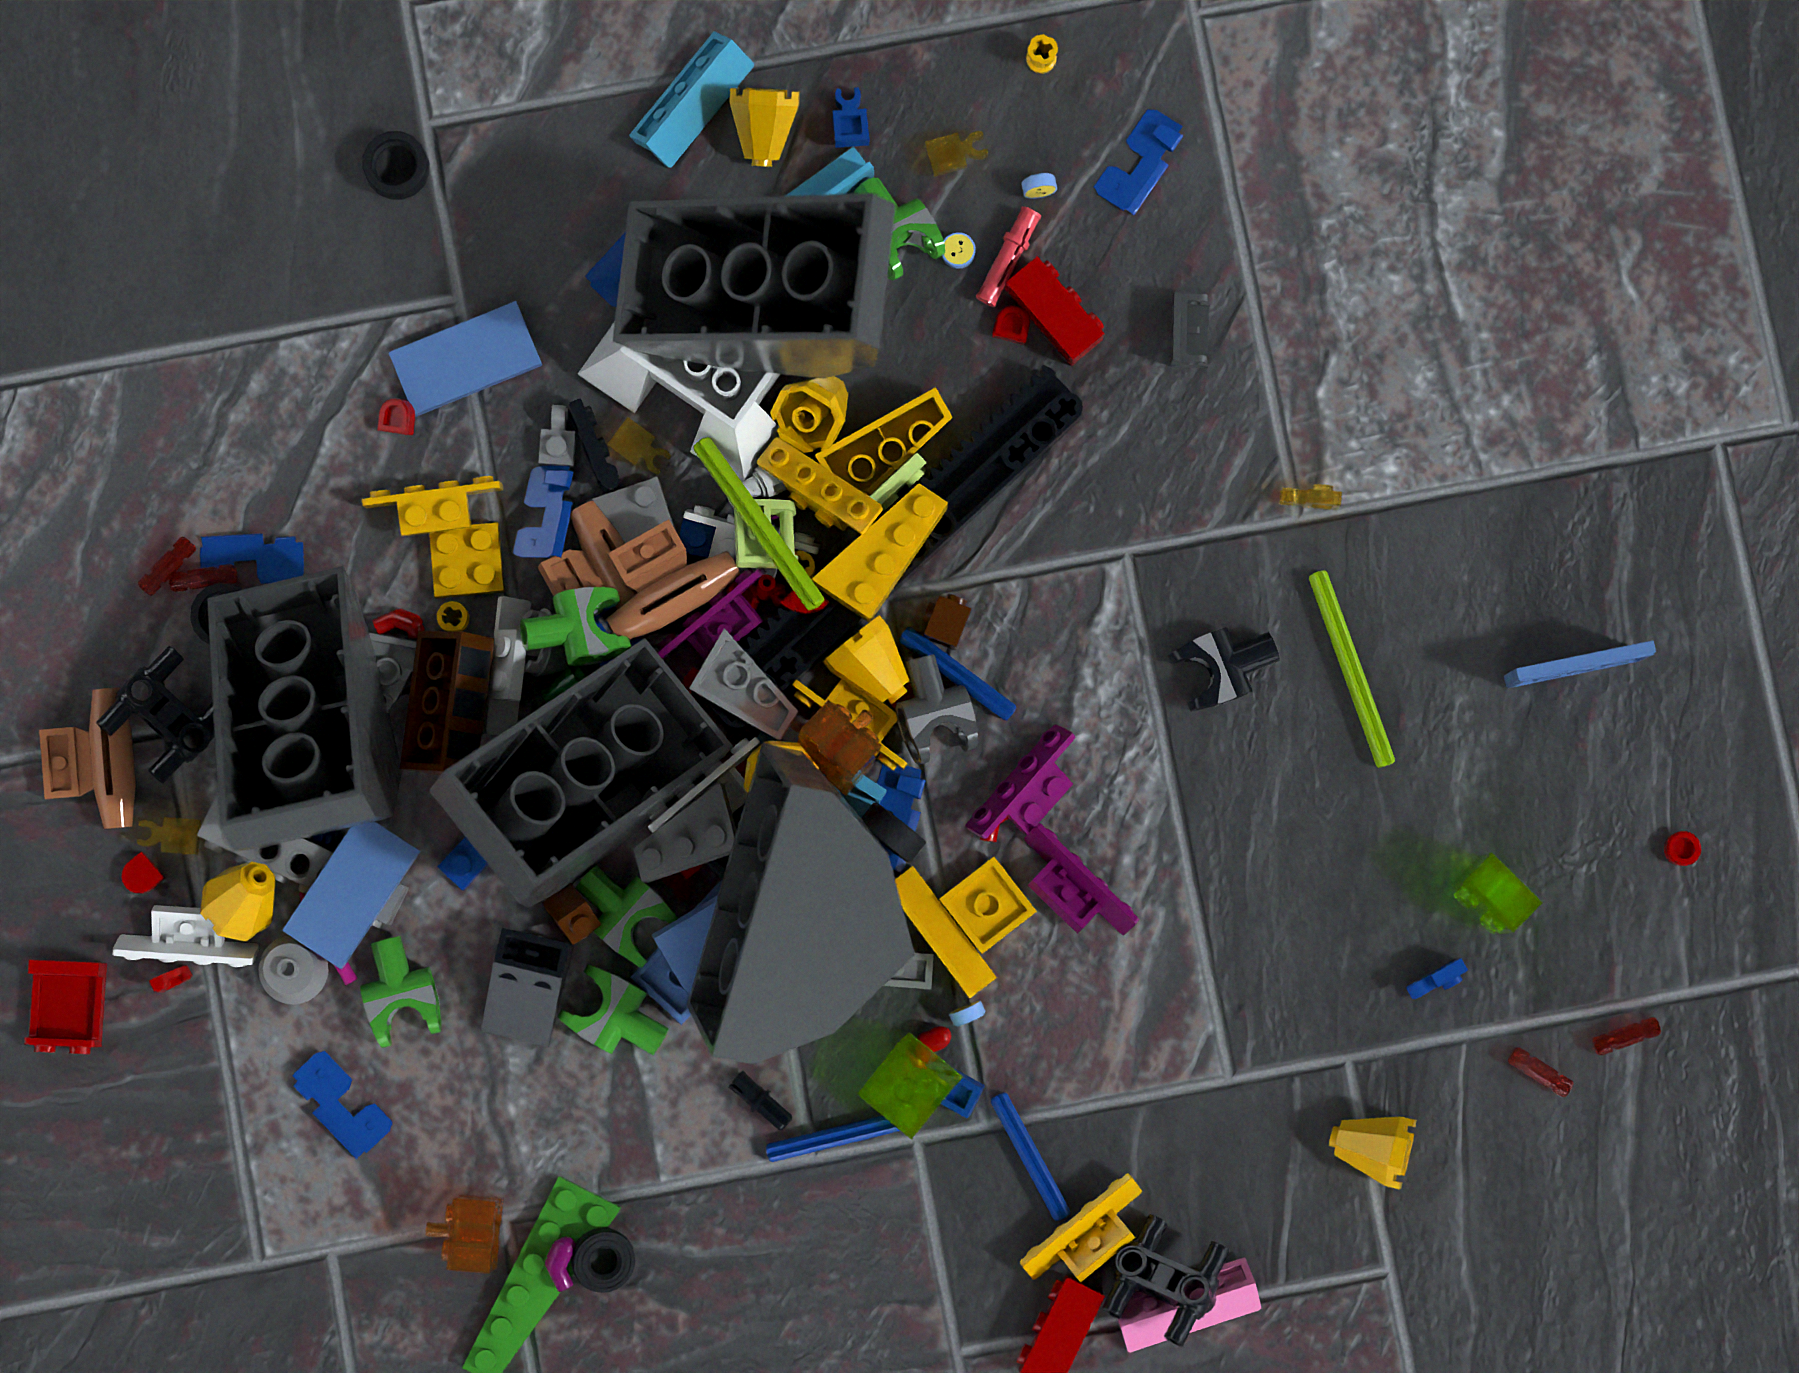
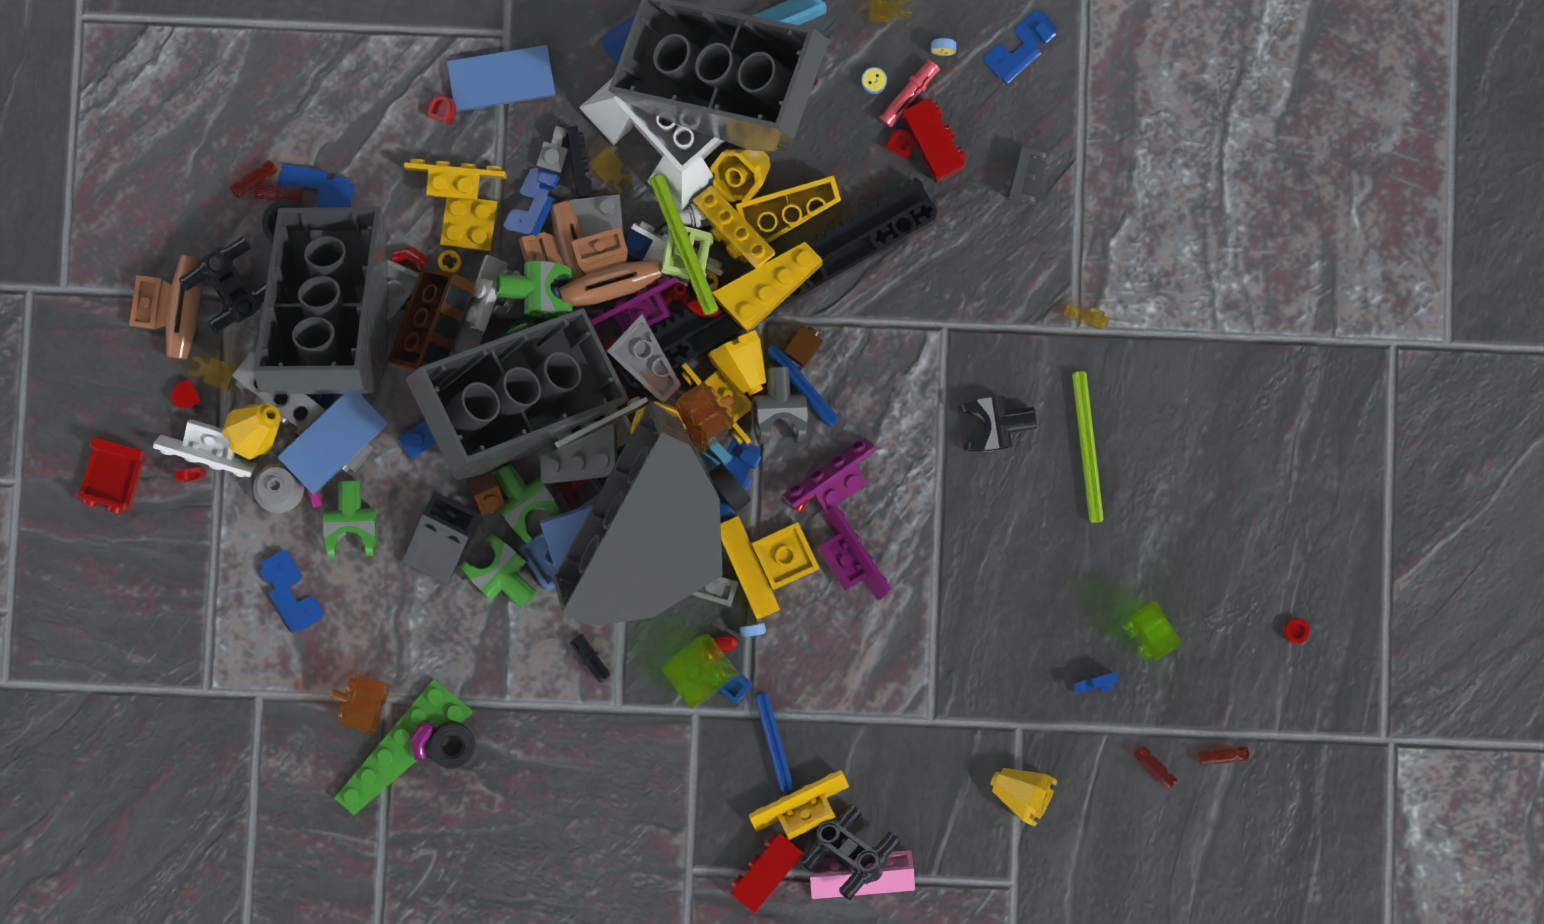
camera: 15 degrees right, 0 degrees up
(829, 1138) = (633, 696): blue axle -> none
(907, 475) = (797, 234): yellowish green plate -> none
(911, 227) = (839, 54): bright green connector -> none
(1579, 664) = (1251, 480): medium blue tile -> none

